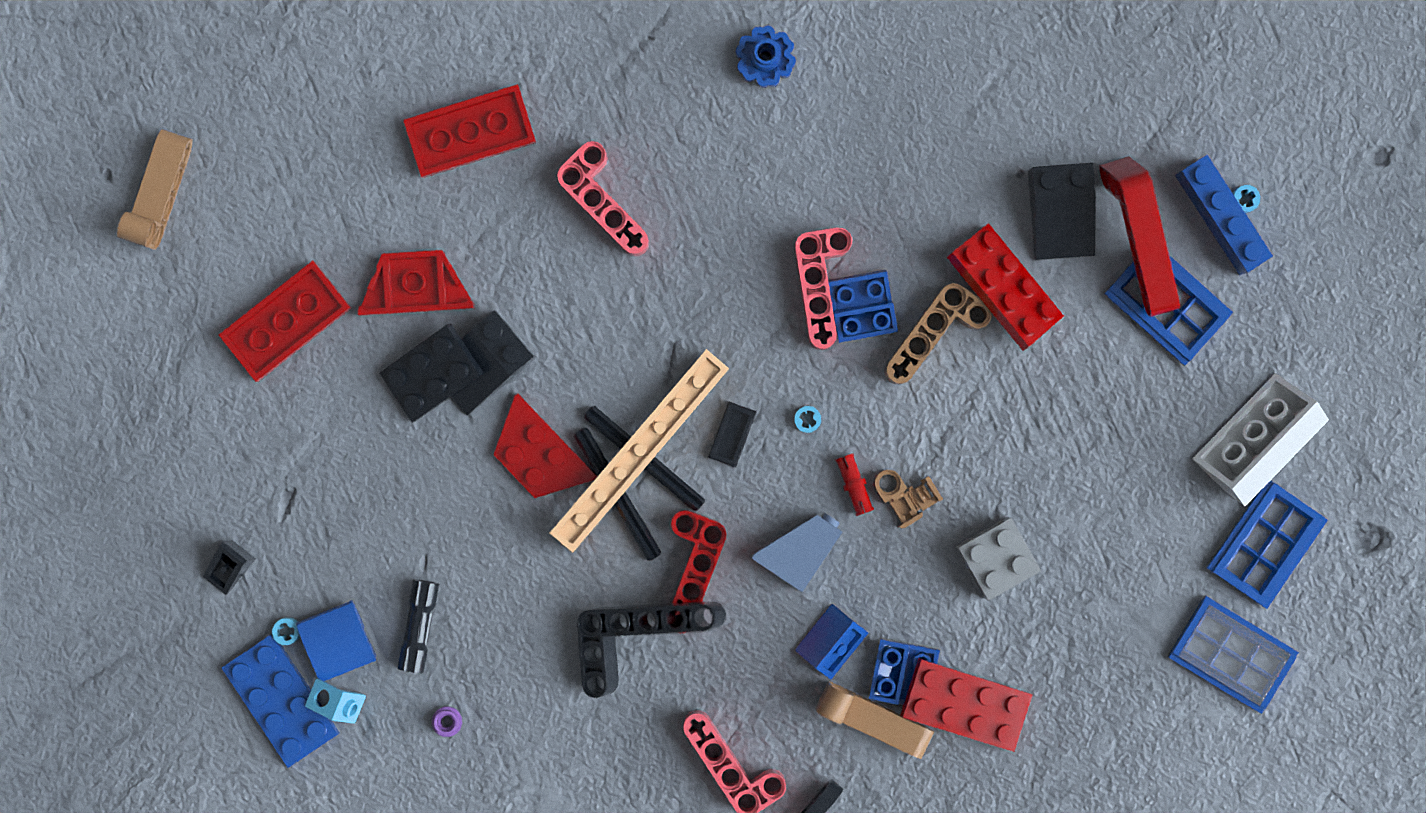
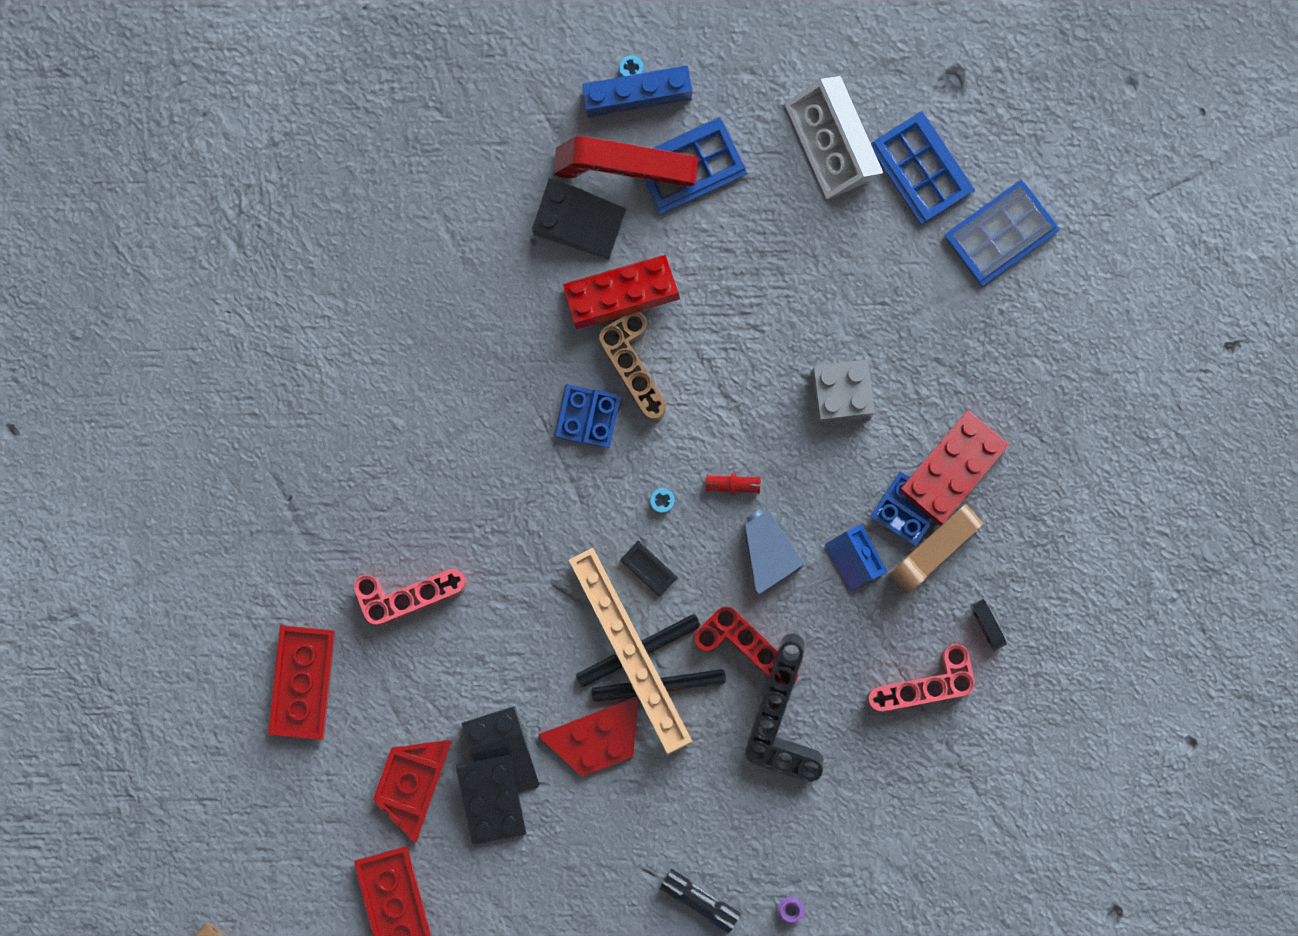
camera: 70 degrees left, 5 degrees down
(765, 41) = (340, 397): blue plant -> none
(820, 290) = (560, 443): coral beam -> none
(907, 504) = (767, 447): medium nougat piece -> none

